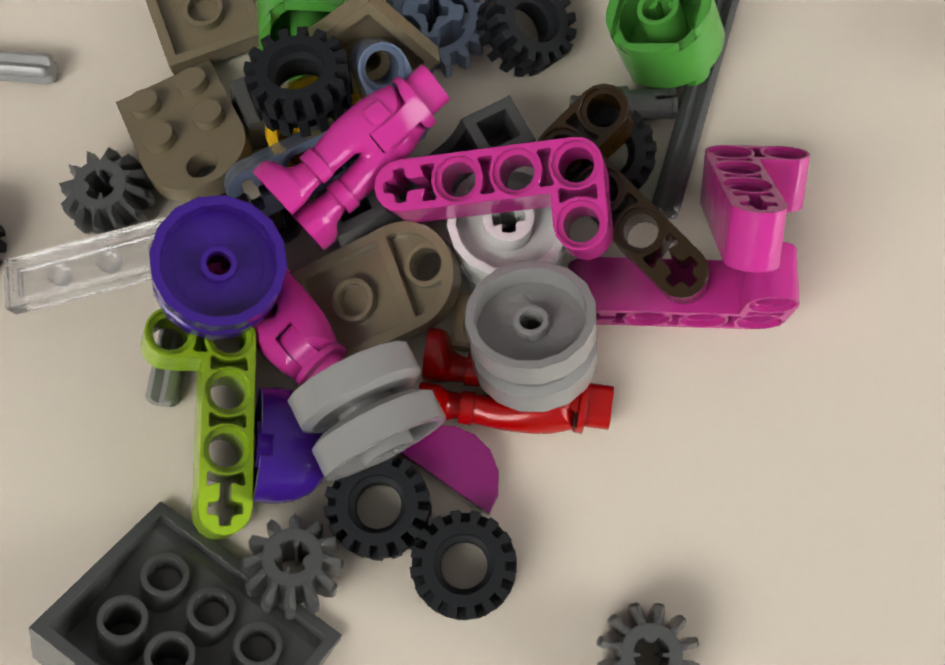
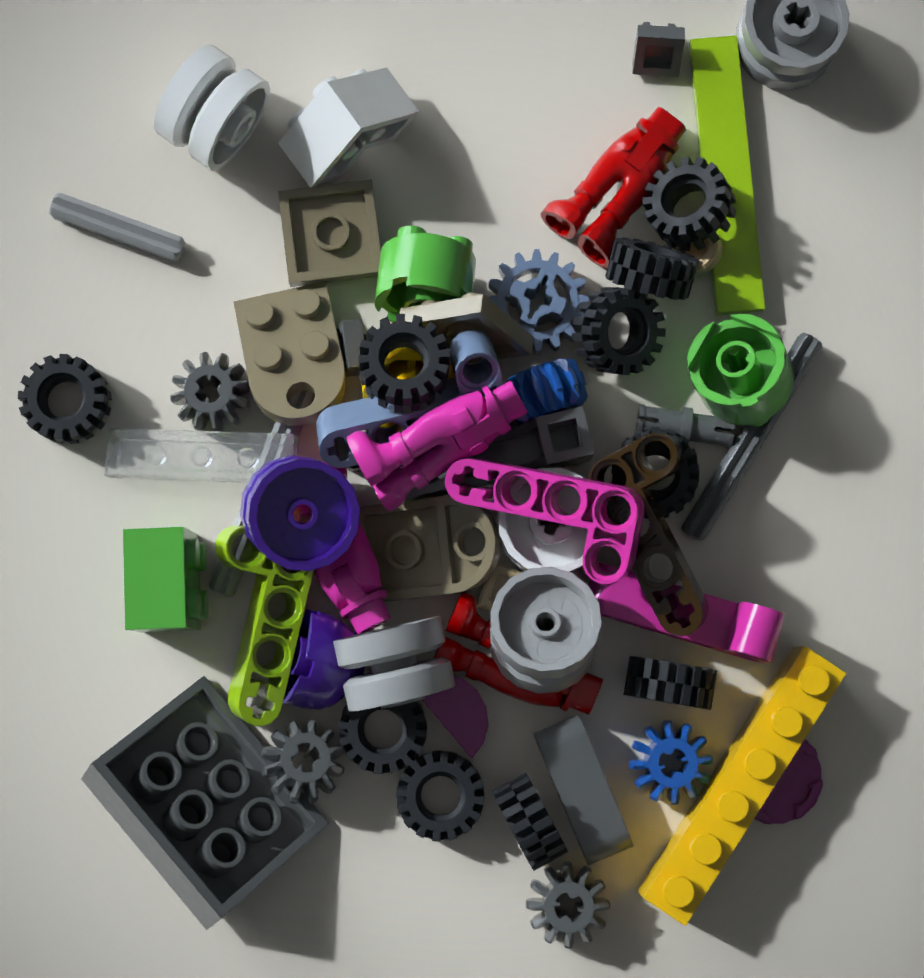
camera: 10 degrees right, 10 degrees up
(84, 397) = (164, 579): none -> bright green brick
(470, 88) = (550, 388): none -> blue gear
(576, 564) = (529, 821): none -> black tyre
(628, 516) = (583, 789): none -> dark grey beam
(690, 364) = (670, 682): none -> black tyre
(730, 477) = (674, 778): none -> blue gear
(747, 200) = (760, 535): dark pink beam -> none
(803, 464) = (741, 783): none -> yellow brick
(860, 452) = (795, 790): none -> magenta tile

